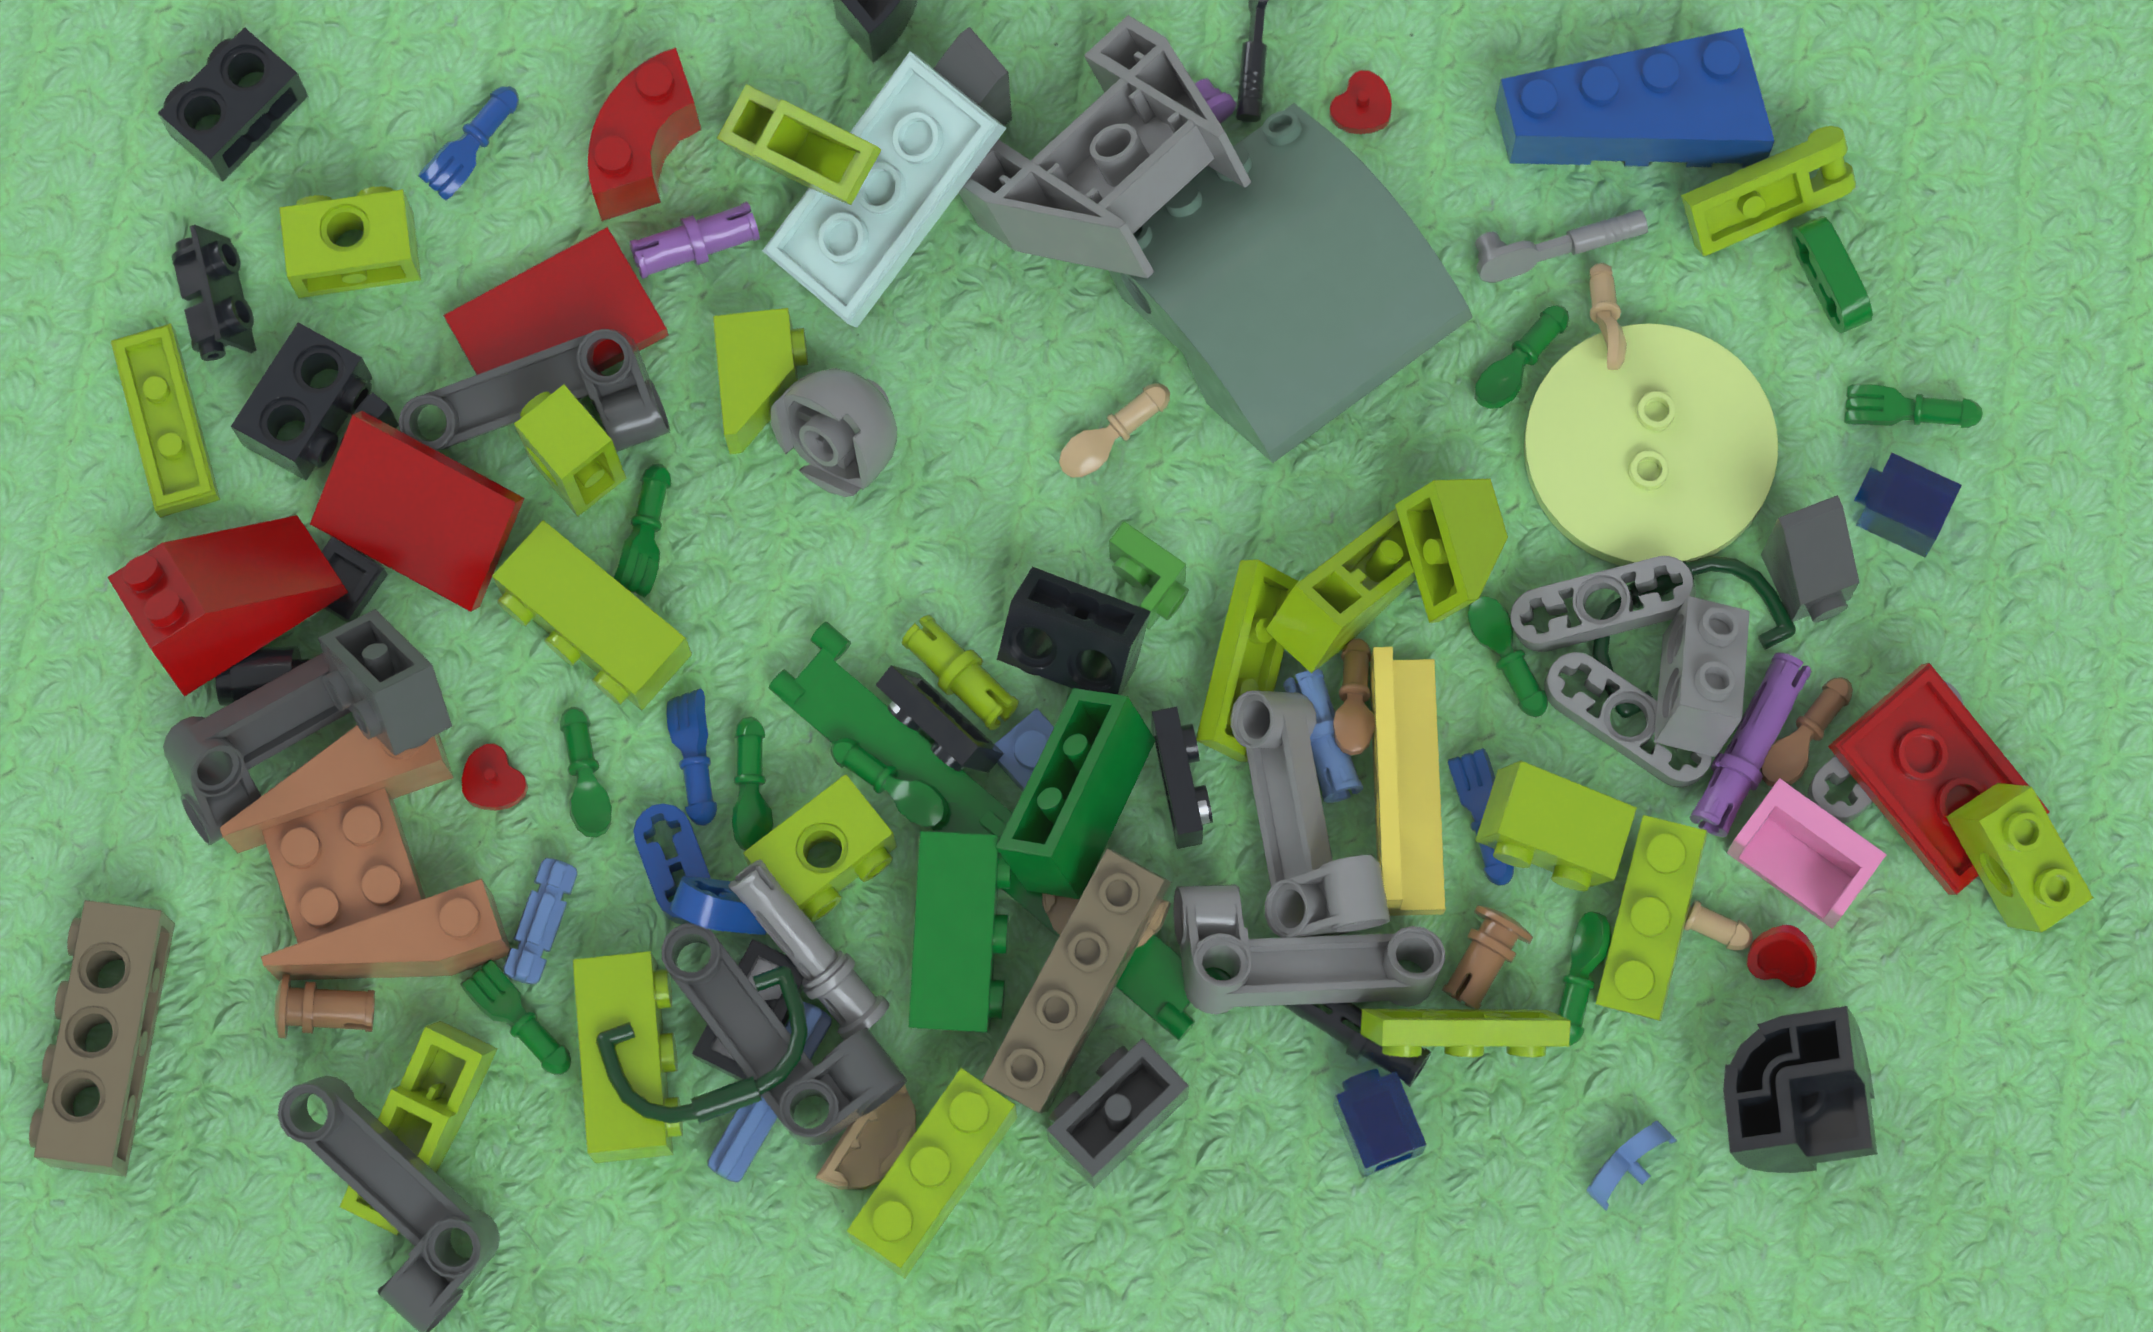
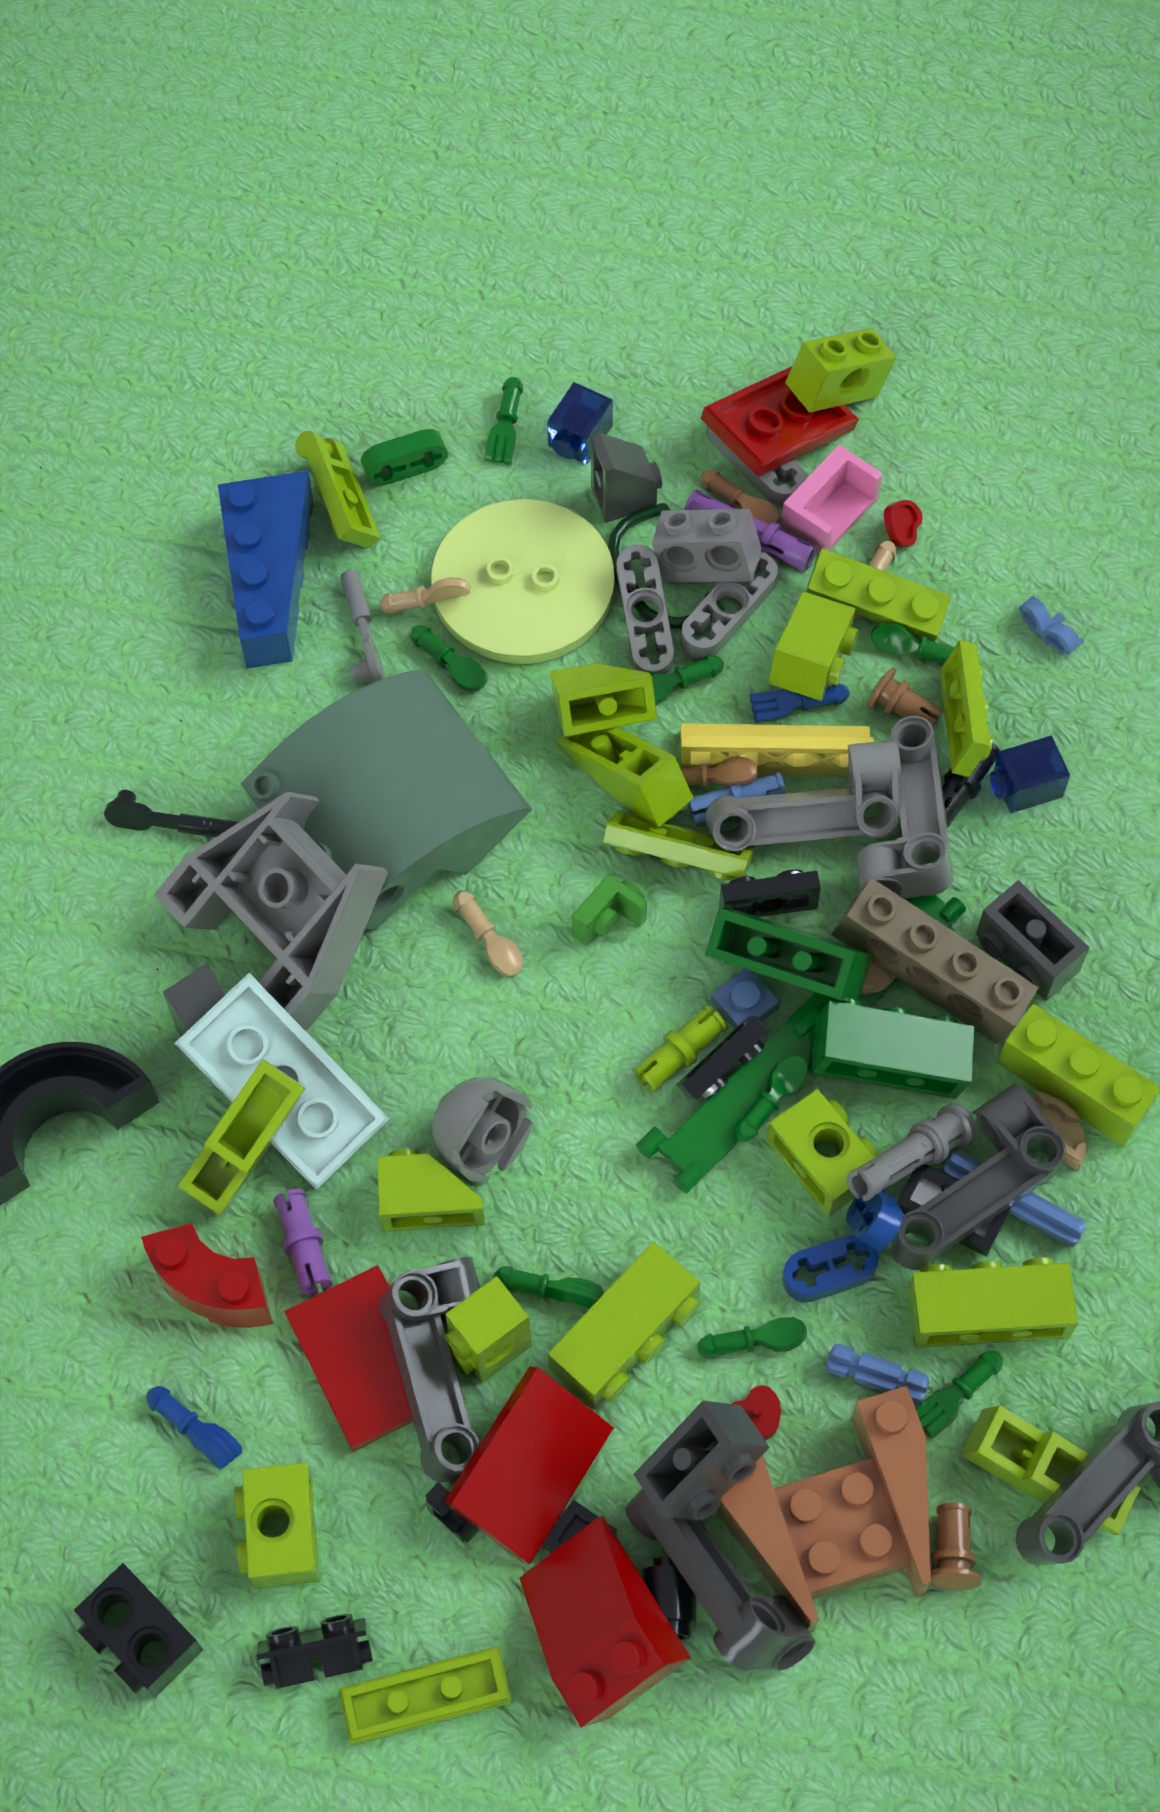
camera: 90 degrees left, 10 degrees down
(105, 1136) = (1071, 1735): dark tan brick -> none
(287, 396) = (414, 1576): black brick -> none
(690, 734) = (721, 1254): blue piece -> none
(725, 1098) = (1036, 1210): dark green piece -> none
(751, 813) = (788, 1208): green piece -> none
(1072, 634) = (659, 958): black brick -> none
(1363, 106) = (236, 752): red piece -> none
(1800, 1093) = (1006, 506): black brick -> none

